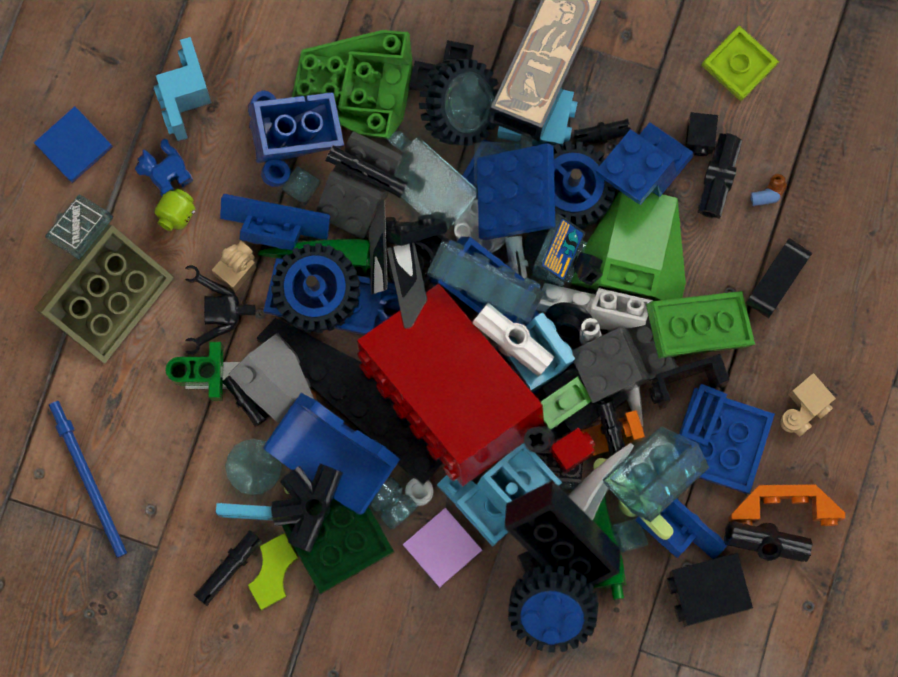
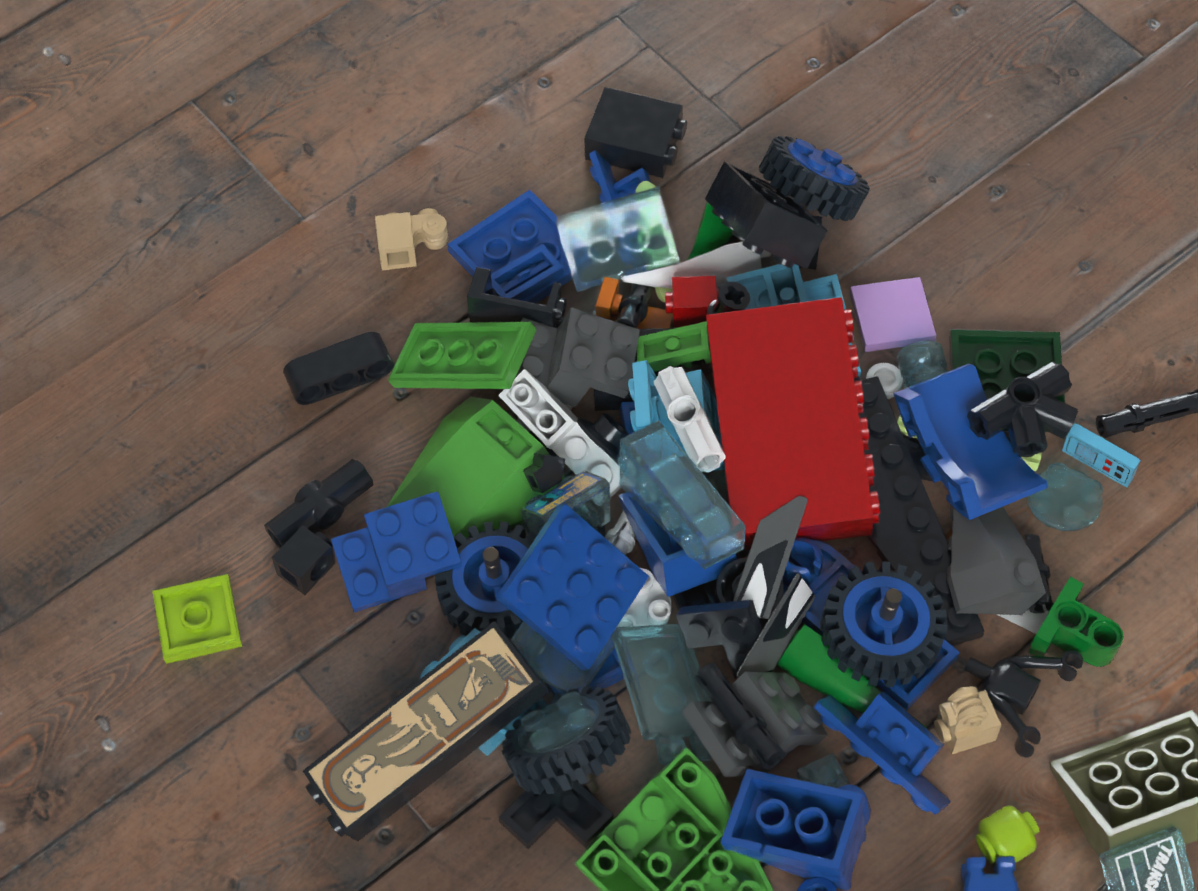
camera: 145 degrees left, 20 degrees down
(269, 584) = (1112, 377): lime tile -> none
(589, 331) = (586, 407): white pin -> none
(602, 132) = (415, 630): black pin -> none
(629, 535) = (685, 219): clear light blue tile -> none
(768, 541) = (545, 136): black piece -> none
(772, 193) = (277, 458): arm -> none
(823, 507) = (543, 177): orange slope -> none

